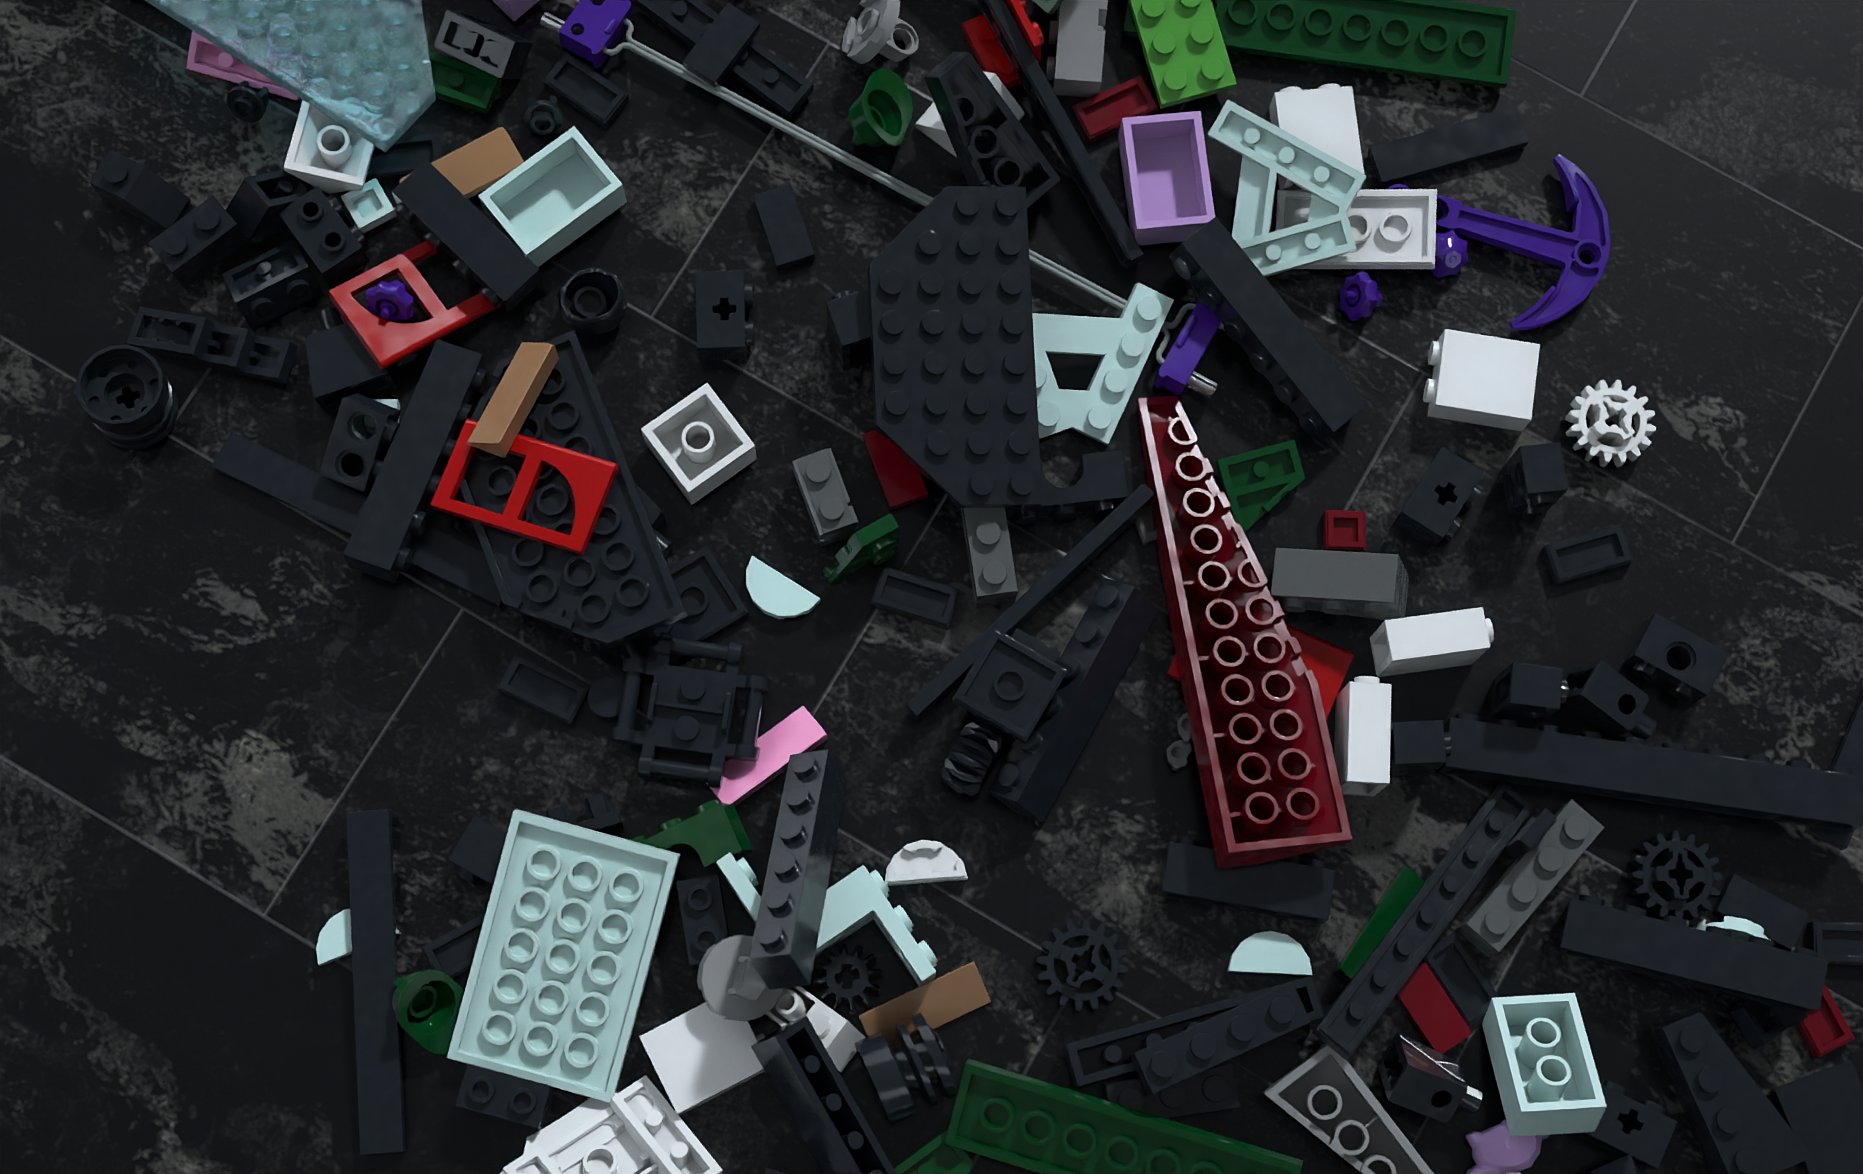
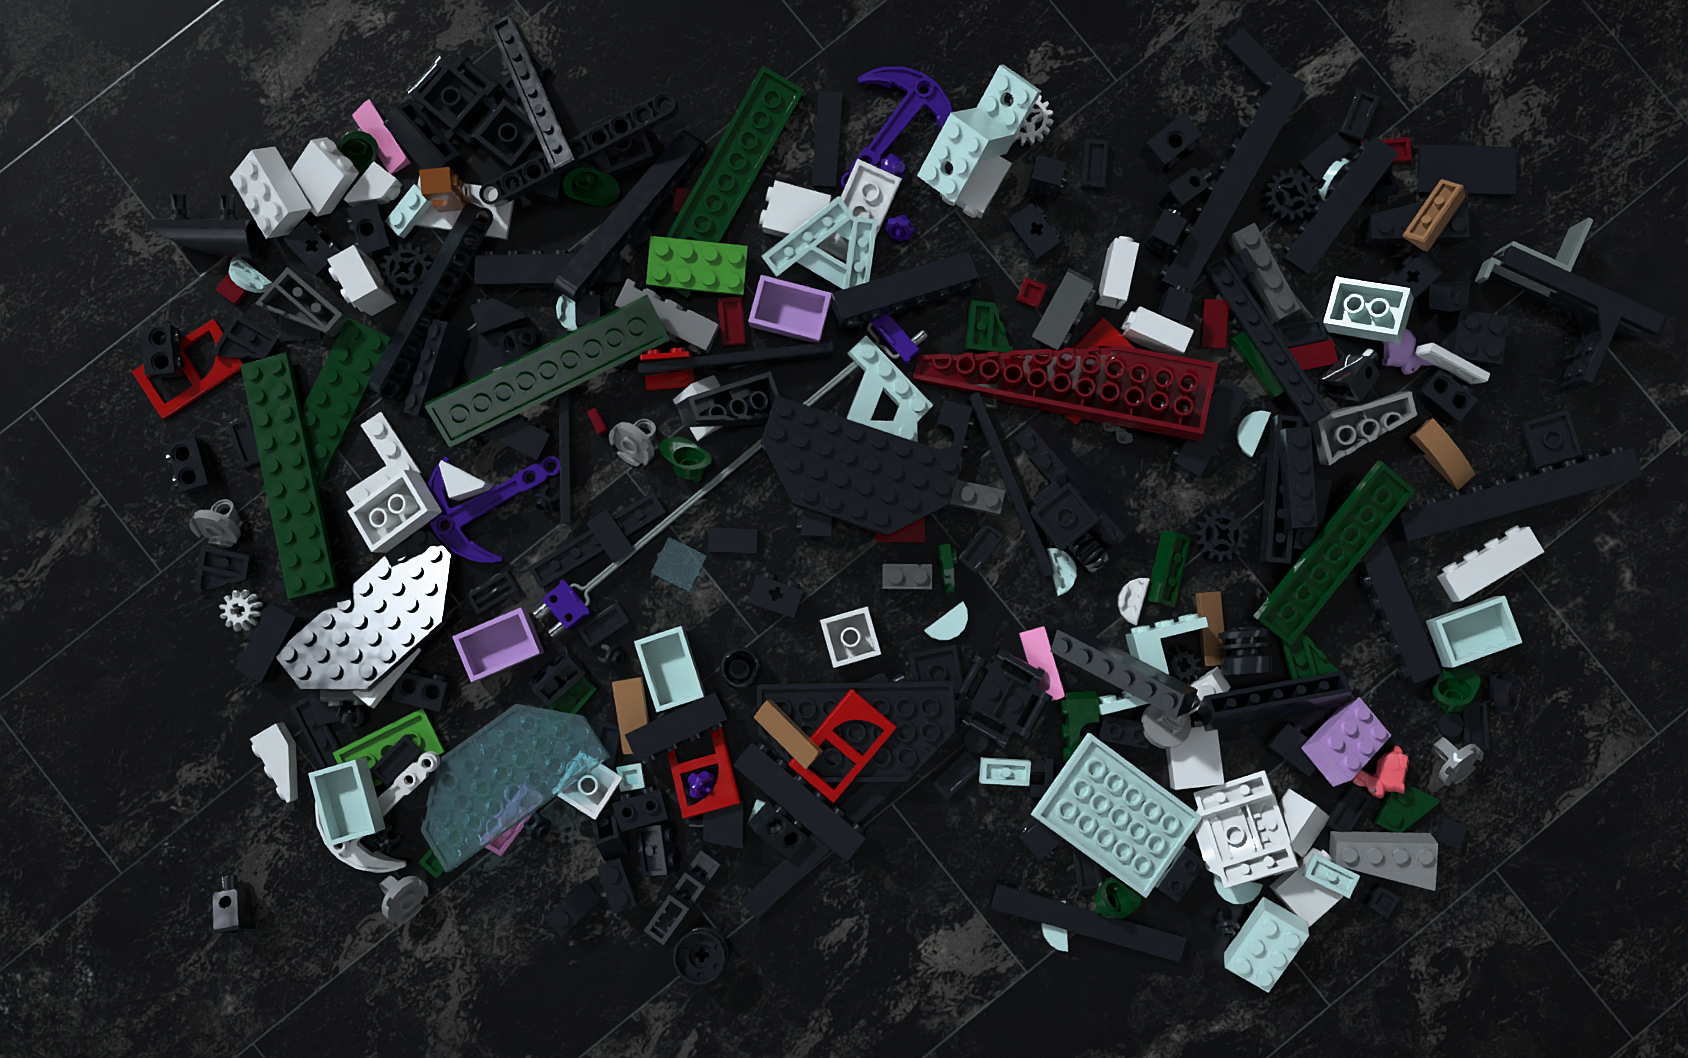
camera: 65 degrees left, 10 degrees up
(573, 758) = (1005, 771): none -> light aqua plate
(718, 164) = (678, 564): none -> clear light blue piece
(928, 737) = (1064, 570): none -> light aqua tile
(996, 905) = (1168, 568): none -> dark green slope
(1415, 833) = (1214, 324): none -> dark red tile
(1554, 347) = (978, 133): none -> light aqua bracket
(1746, 1114) = (1435, 214): none -> medium nougat slope

